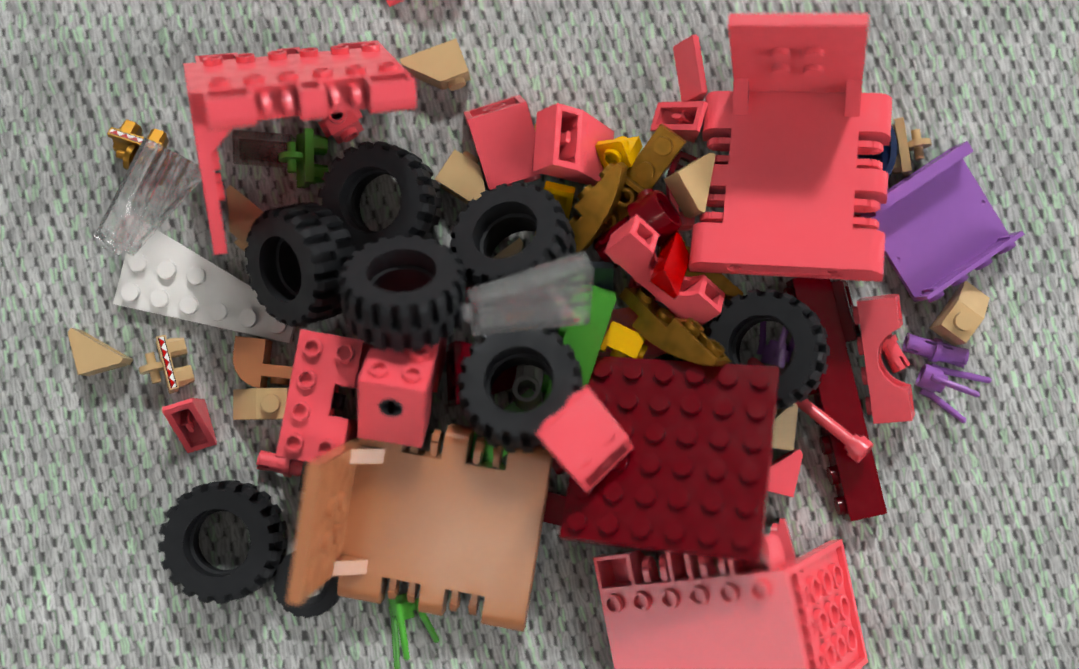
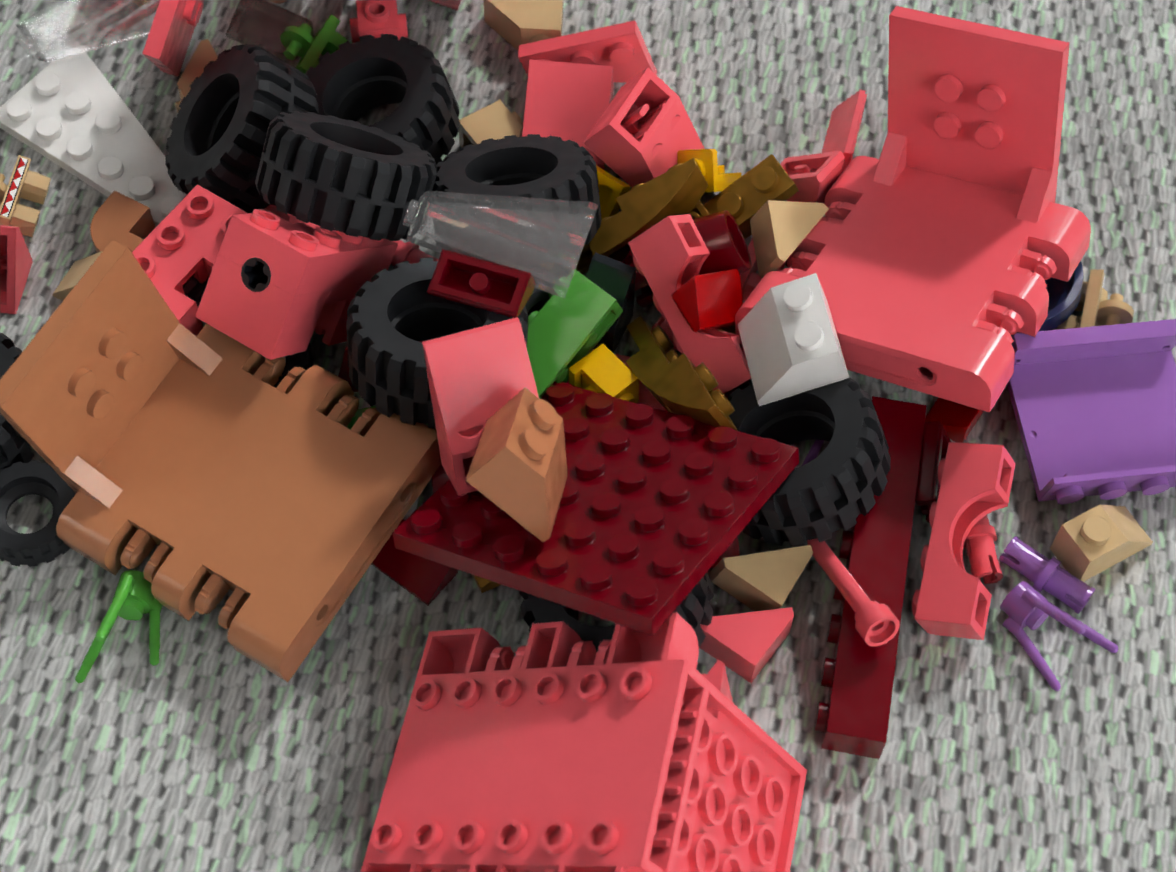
camera: 20 degrees right, 25 degrees down
(495, 83) = (611, 45): none -> coral wing
(537, 347) = (481, 284): none -> dark red slope
(628, 479) = (523, 462): none -> nougat slope
(742, 288) = (791, 341): none -> white slope

